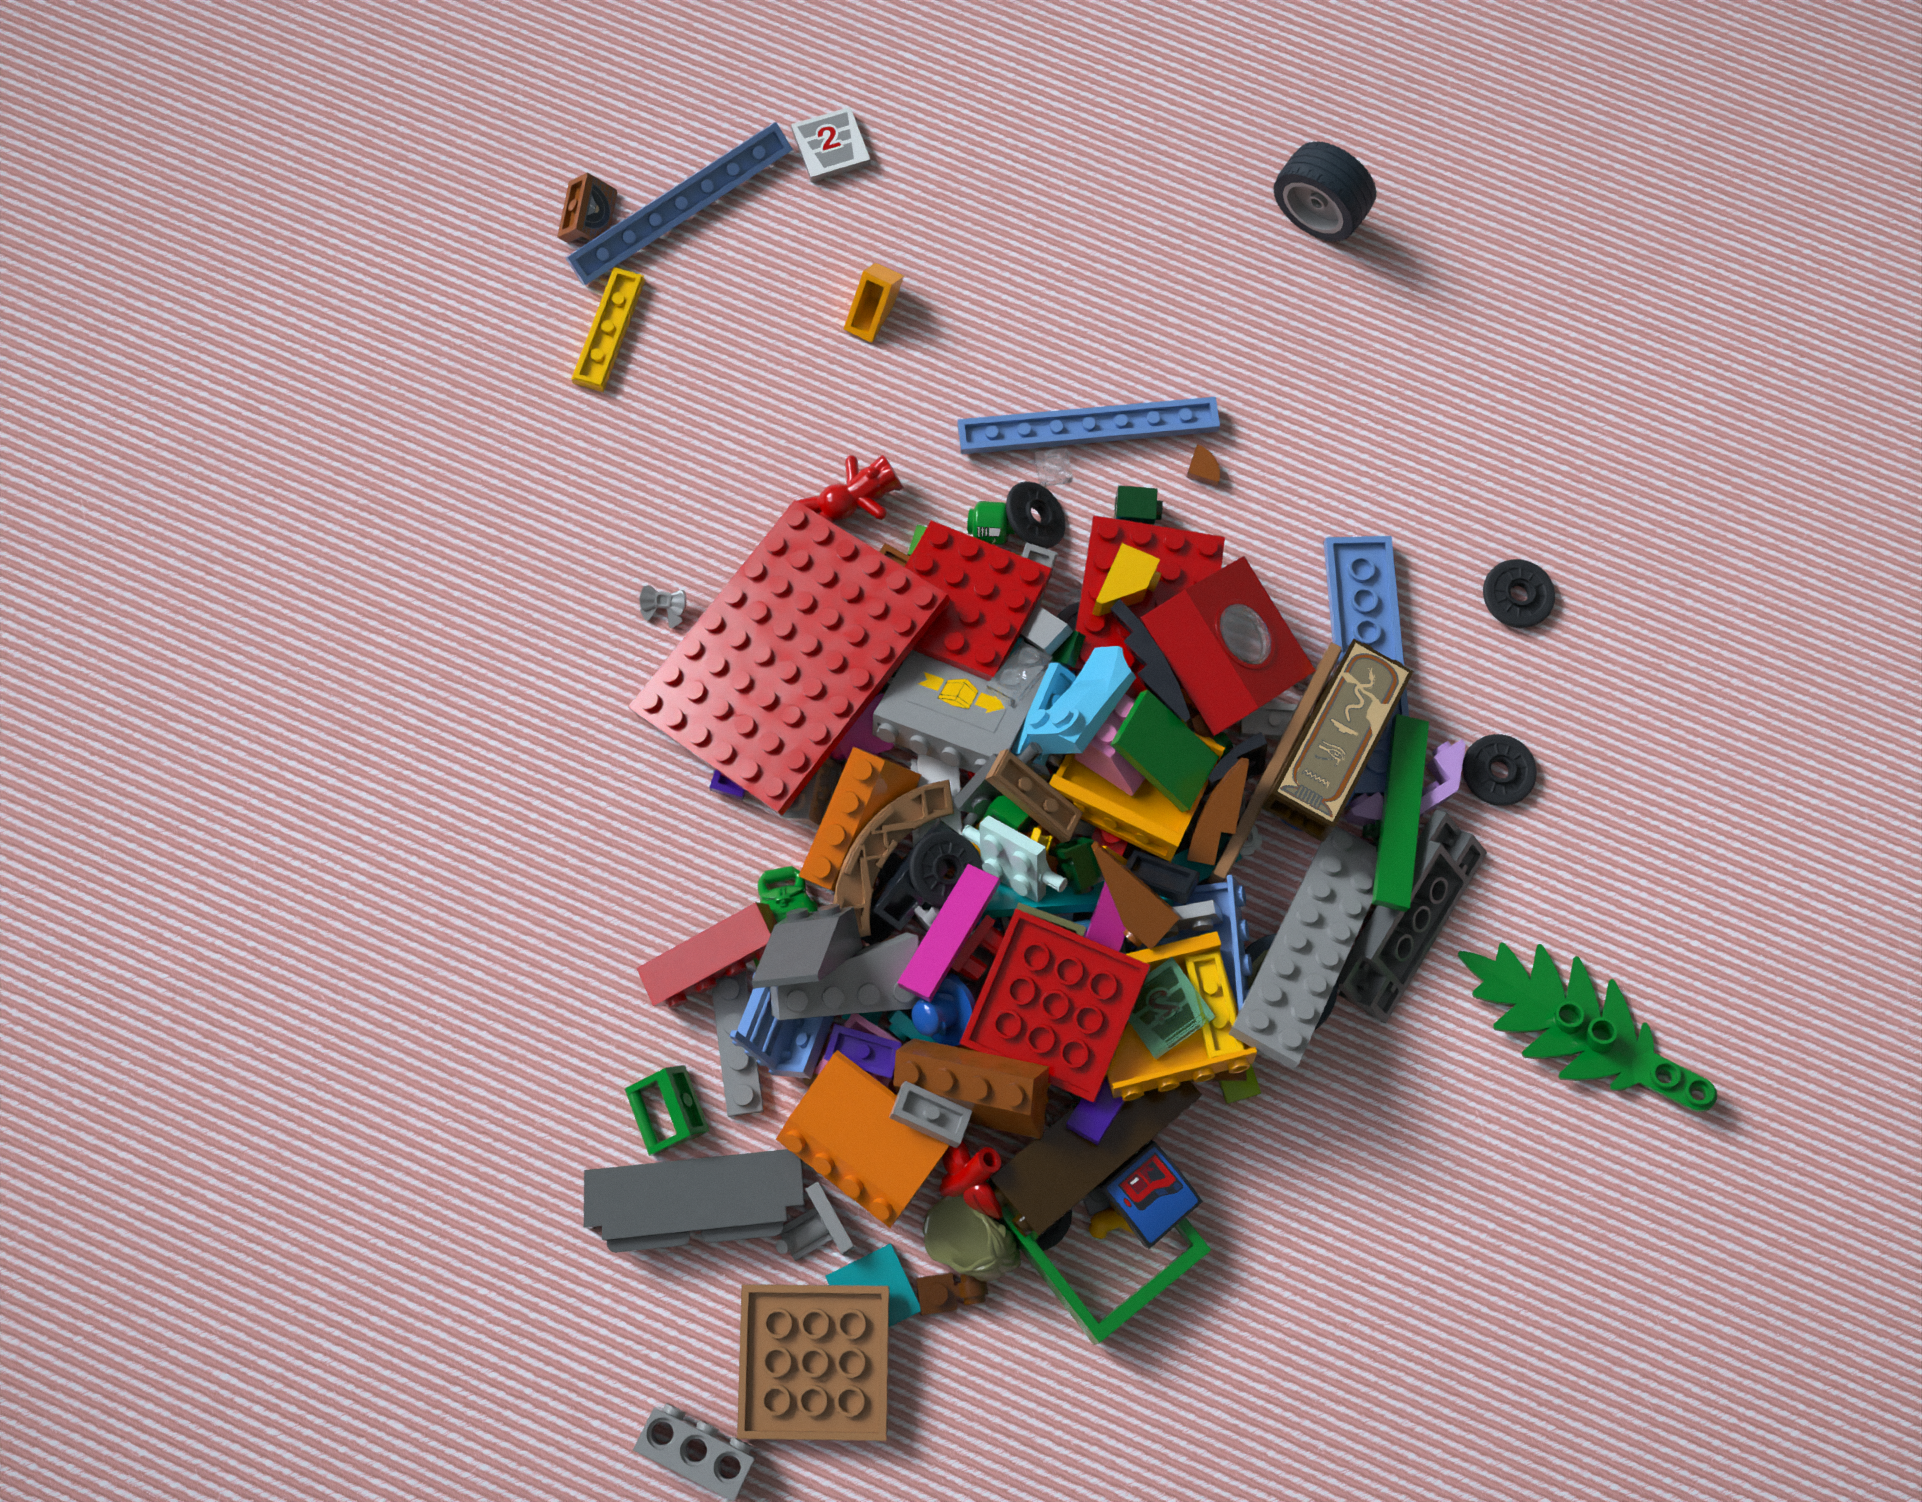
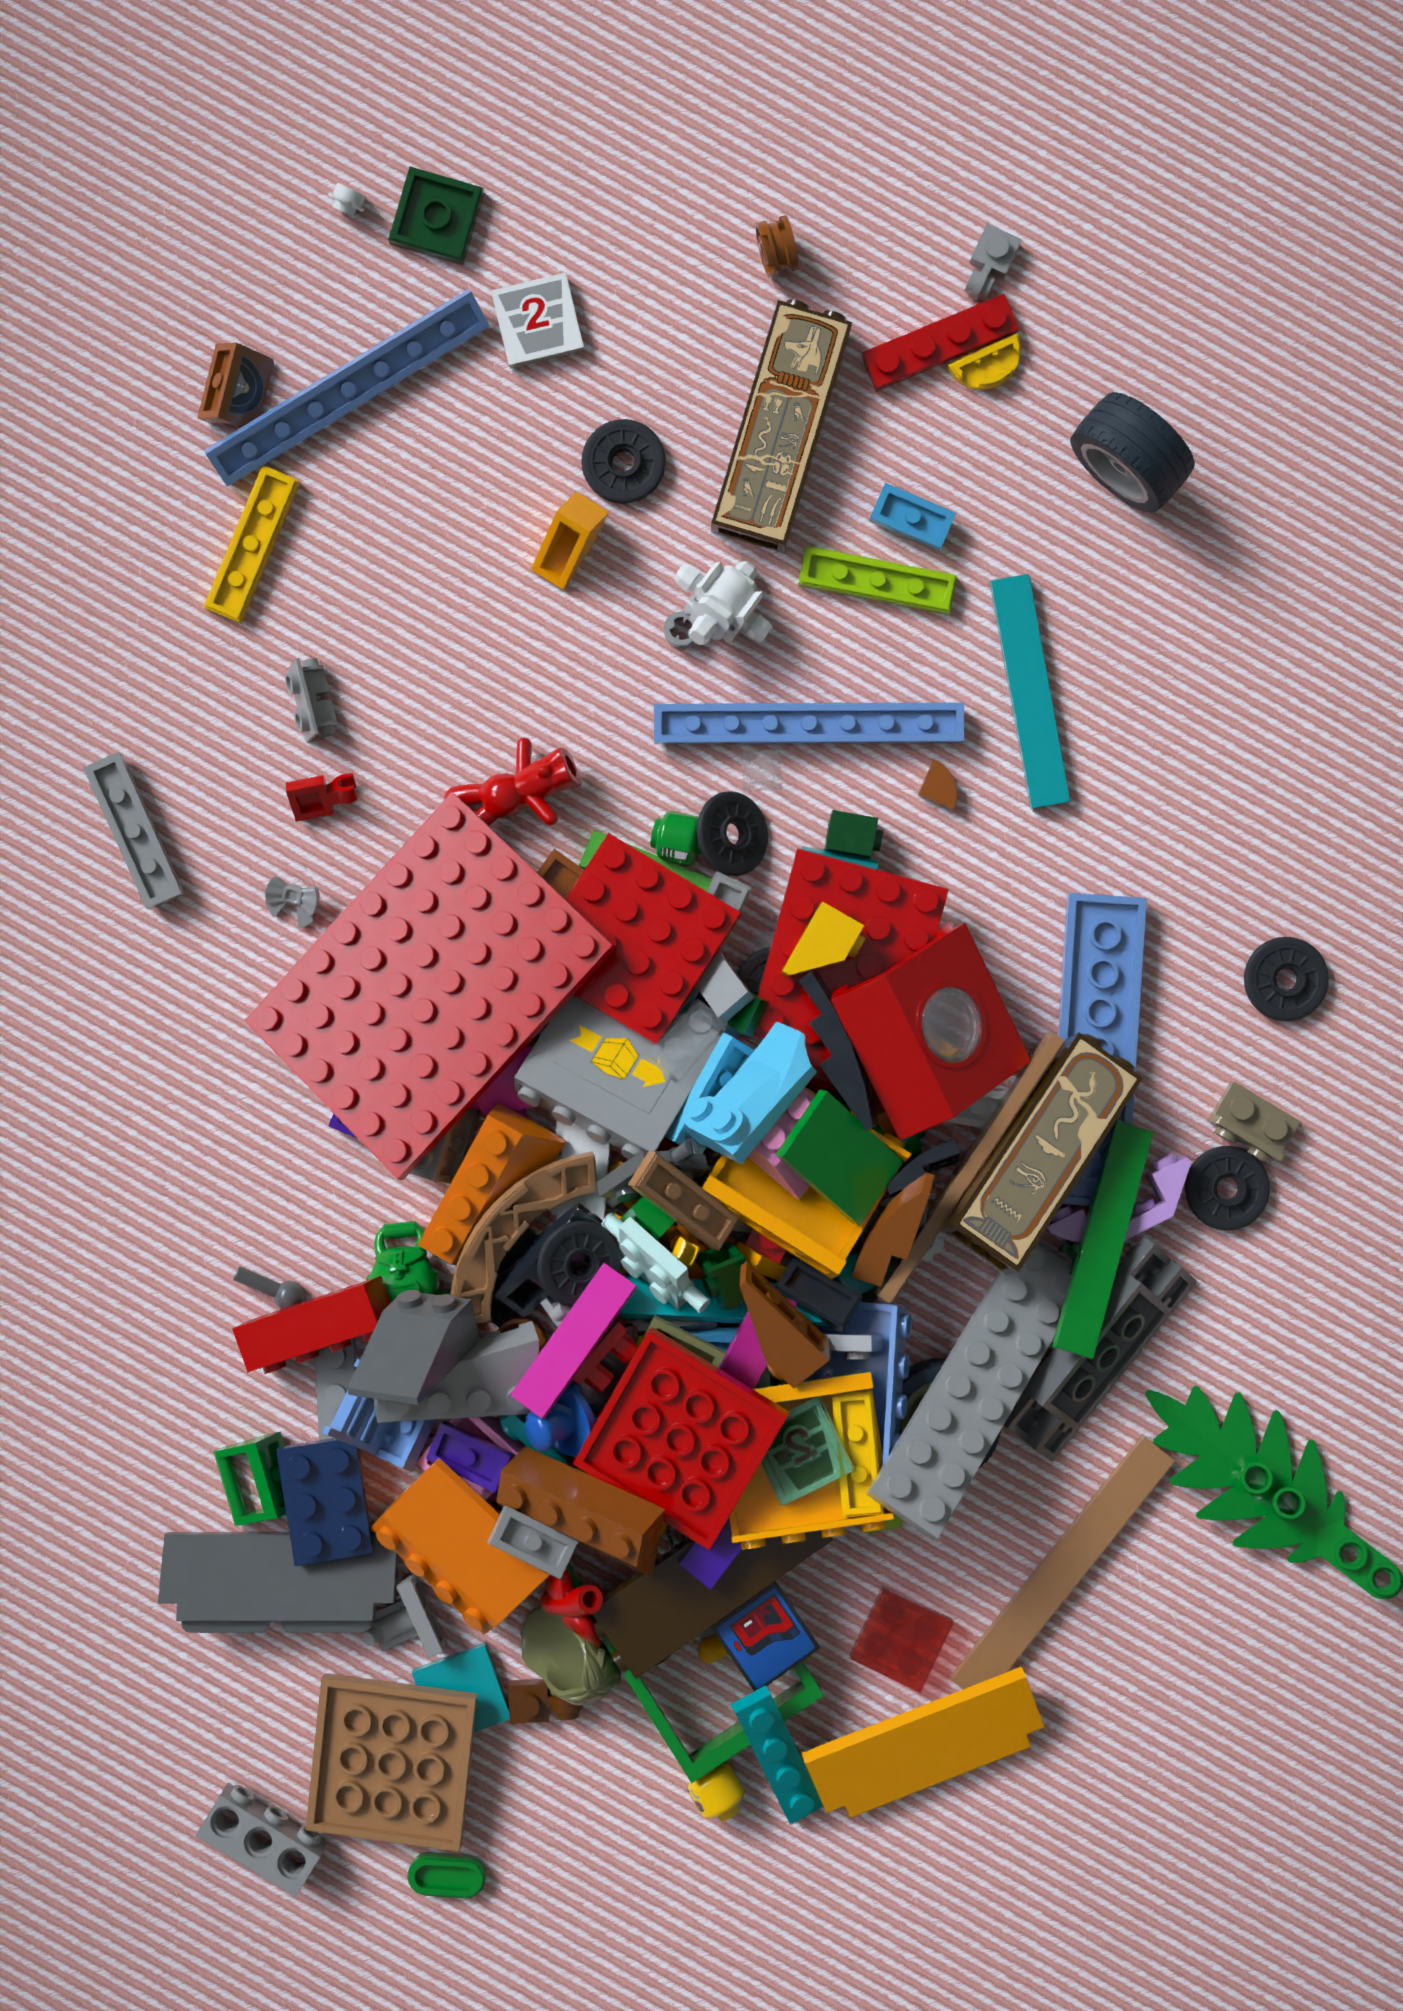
camera: 15 degrees right, 15 degrees up
(522, 560) = (134, 830): none -> light grey plate
(662, 429) = (305, 685): none -> light grey hinge
(662, 934) = (284, 1294): none -> dark grey bar
(669, 68) = (347, 199): none -> white plate
(675, 519) = (315, 798): none -> red plate
(732, 1117) = (324, 1501): none -> dark blue plate
(741, 76) = (436, 215): none -> dark green tile
(875, 1473) = (446, 1875): none -> green tile
(916, 258) = (629, 437): none -> black wheel
(969, 373) = (670, 626): none -> light grey bush
(1006, 334) = (723, 602): none -> white piece
(1018, 72) = (777, 246): none -> dark orange wheel
(1037, 204) = (781, 425): none -> brick
(1122, 1357) = (717, 1793): none -> yellow head
(1130, 313) = (877, 580): none -> lime tile
(1152, 262) = (912, 517): none -> dark azure plate
(1156, 135) = (940, 342): none -> red plate
(1176, 1310) = (777, 1754): none -> teal plate
(1189, 72) = (992, 255): none -> light grey plate
(1196, 150) = (988, 366): none -> yellow tile
(1268, 388) = (1029, 691): none -> teal tile
(1274, 1196) = (901, 1638): none -> clear red plate
(1310, 1290) = (925, 1745): none -> light orange slope
(1408, 1120) = (1064, 1564): none -> medium nougat tile
(1512, 713) = (1253, 1122): none -> dark tan bracket

